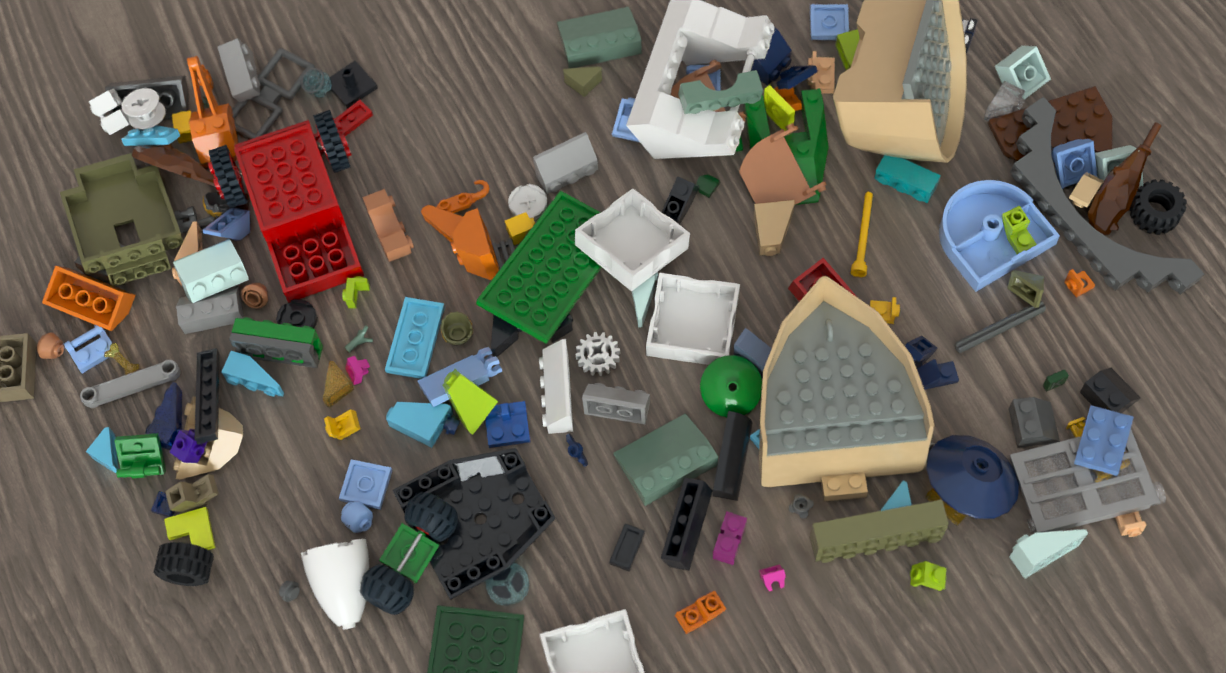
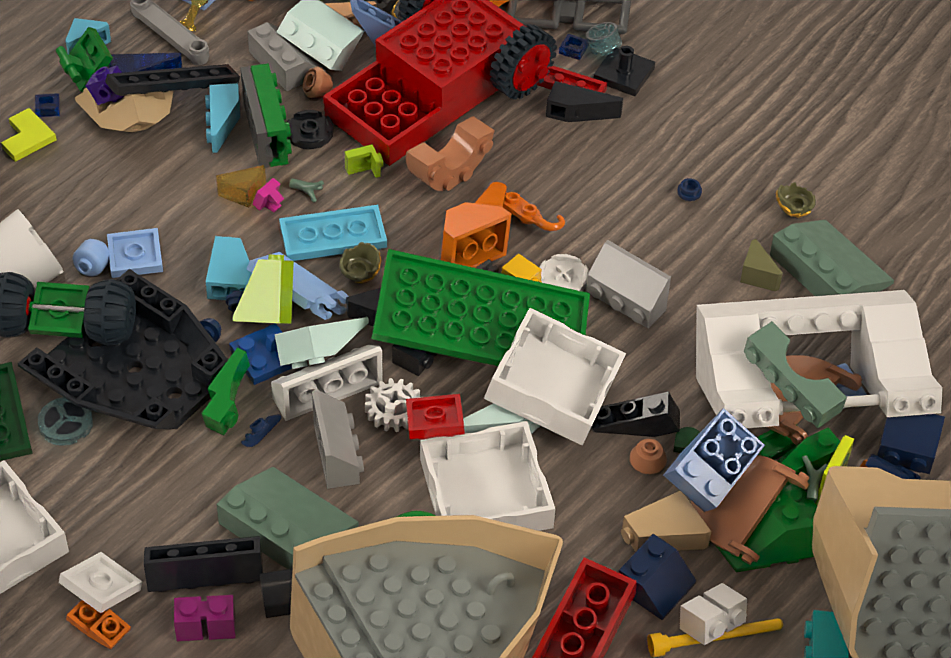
camera: 60 degrees right, 15 degrees down
(189, 497) = (59, 115): dark tan brick -> none
(307, 106) = (573, 46): none -> clear blue tile
(342, 425) = (194, 207): yellow bracket -> none
(370, 128) = (579, 104): none -> black slope
(470, 451) = (212, 327): none -> dark blue plate
(490, 91) = (689, 189): none -> dark blue plate
(526, 379) = (316, 342): none -> light aqua slope
(535, 30) = (795, 200): none -> olive hair
(552, 468) = (221, 410): none -> green slope
(627, 547) = (155, 521): black tile -> none
(632, 328) = (435, 416): none -> red plate
(672, 599) = (100, 582): none -> white plate
(710, 214) = (648, 457): none -> nougat cone
(752, 173) = (714, 461): none -> medium blue slope
(777, 122) = (814, 478): none -> sand green bar
(807, 246) = (659, 575): none -> dark blue slope
(854, 225) = (708, 620): none -> white piece

